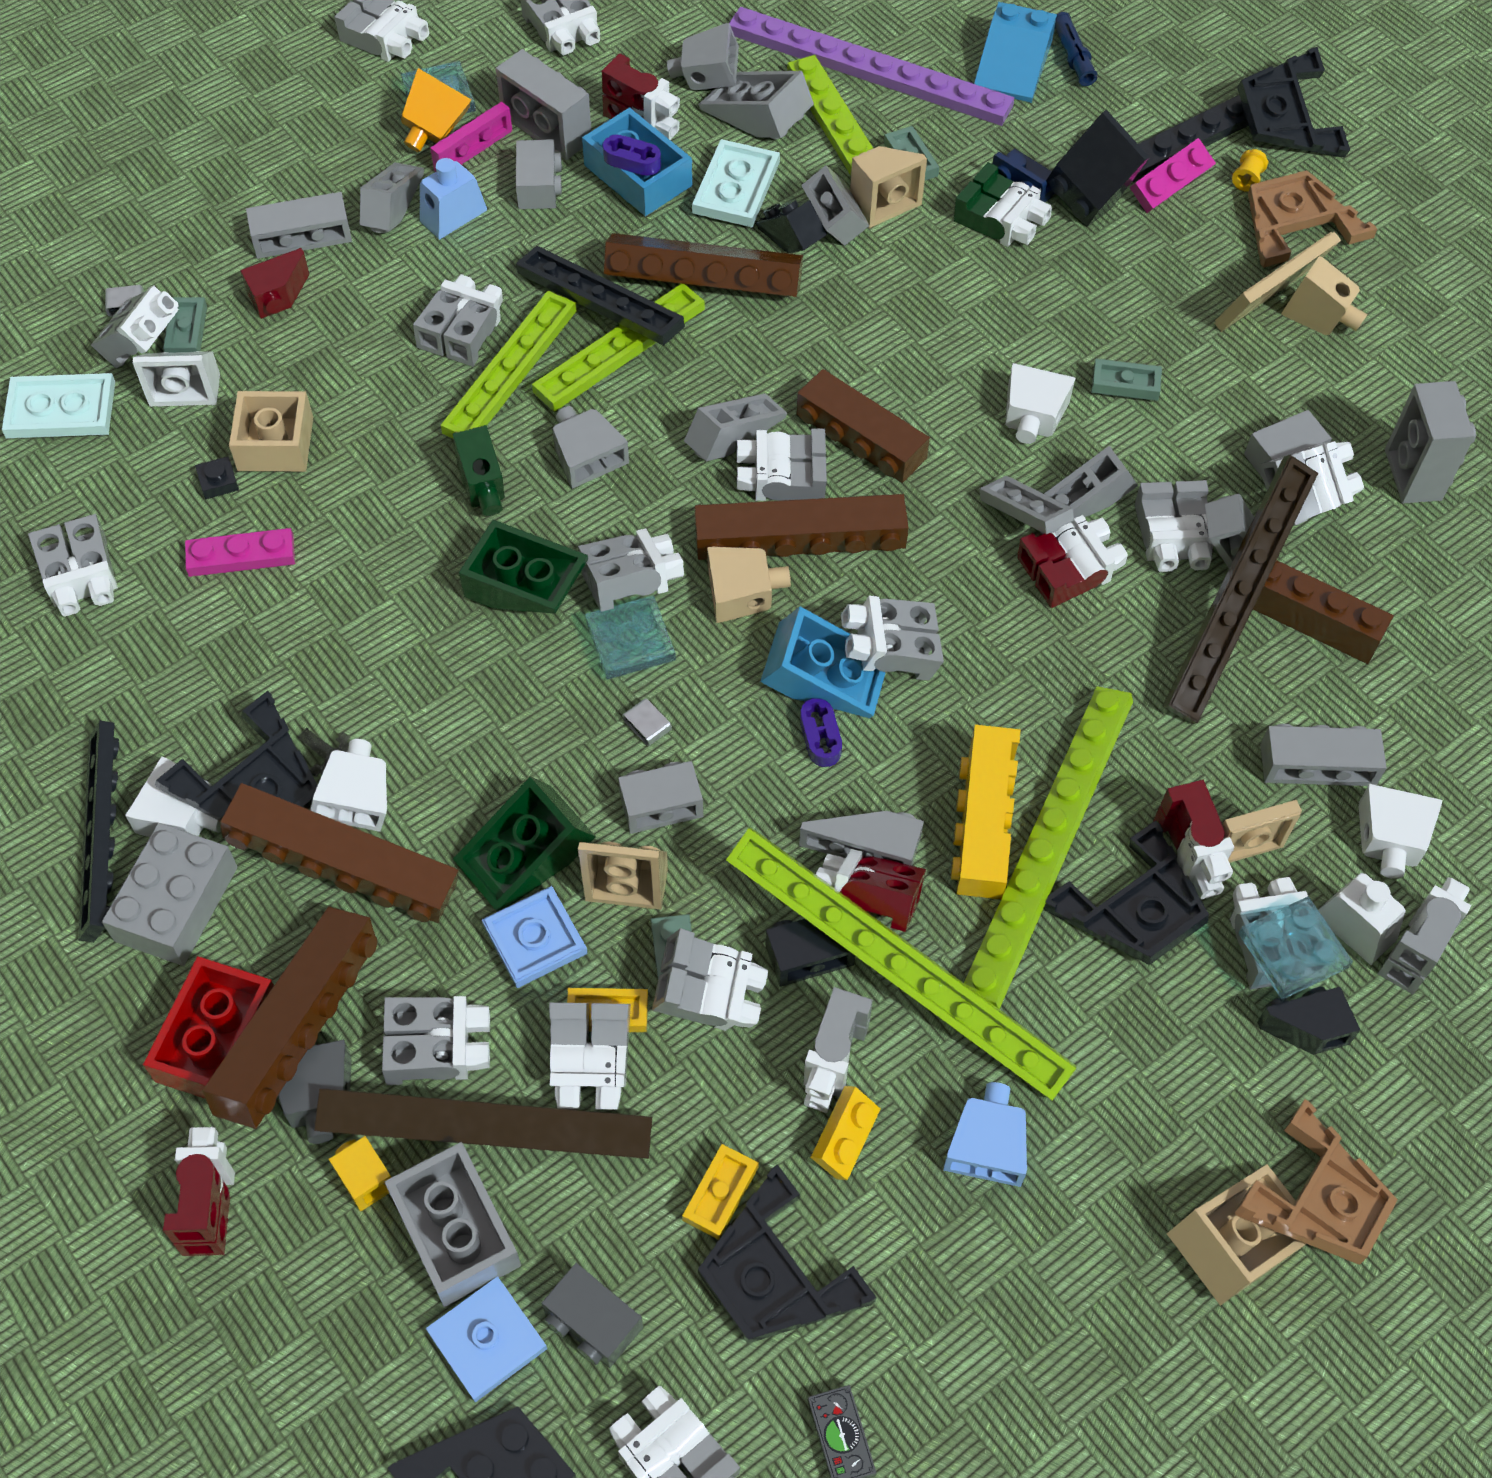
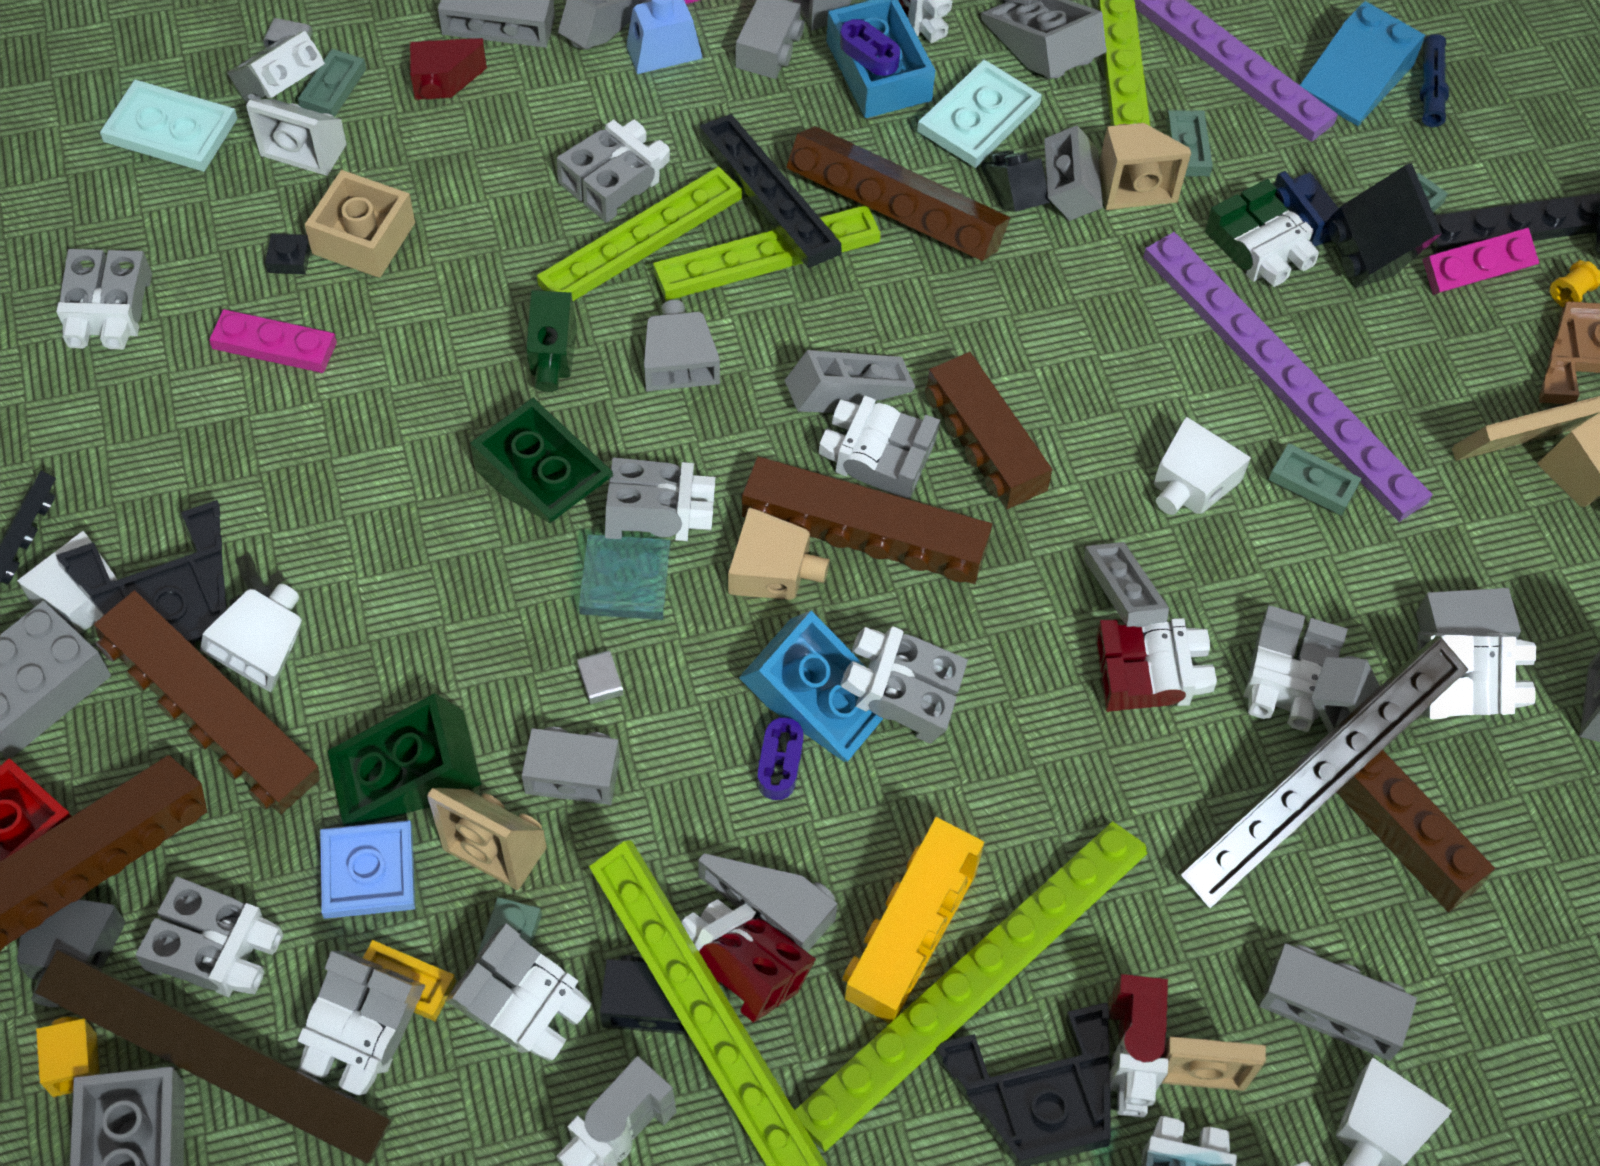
camera: 20 degrees right, 0 degrees up
(1066, 308) = (1288, 377): none -> medium lavender plate
(1094, 485) = (1214, 589): light grey slope -> none

